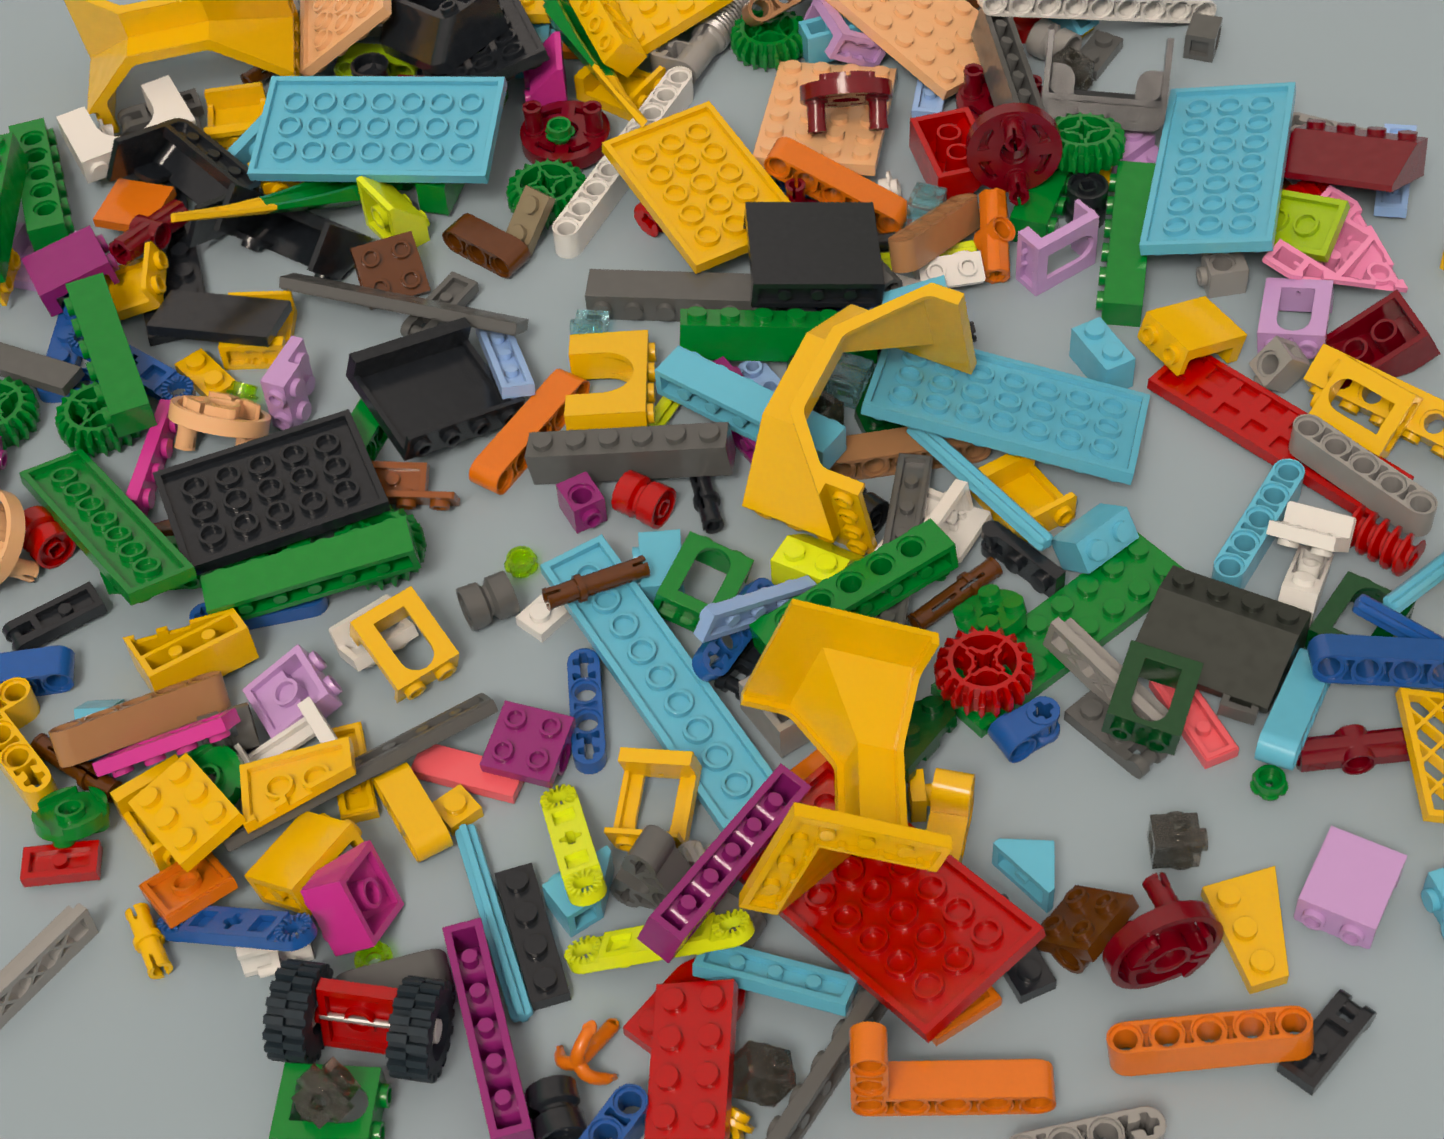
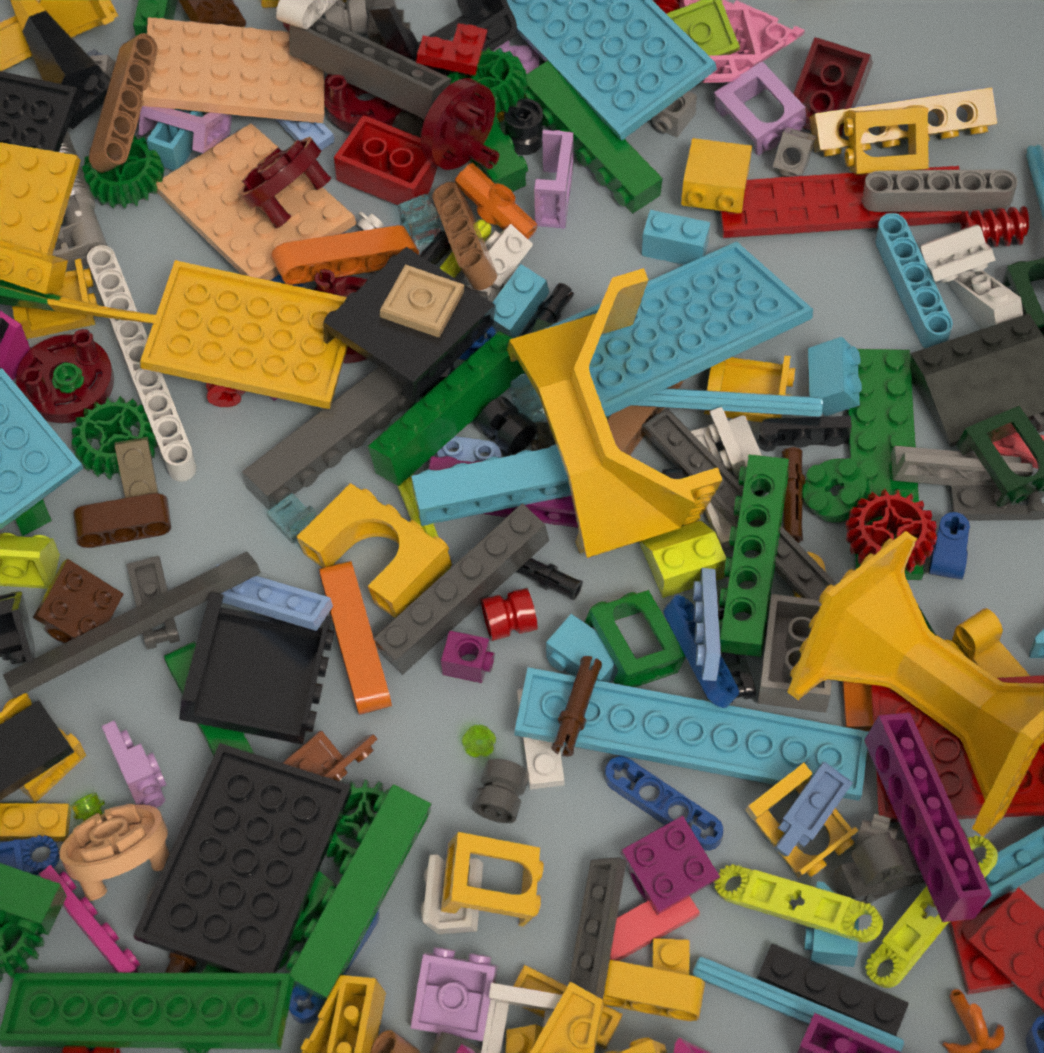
camera: 50 degrees left, 10 degrees up
(666, 793) = (812, 808): none -> medium blue hinge
(831, 240) = (422, 301): none -> tan tile
(1077, 104) = (457, 55): none -> red plate

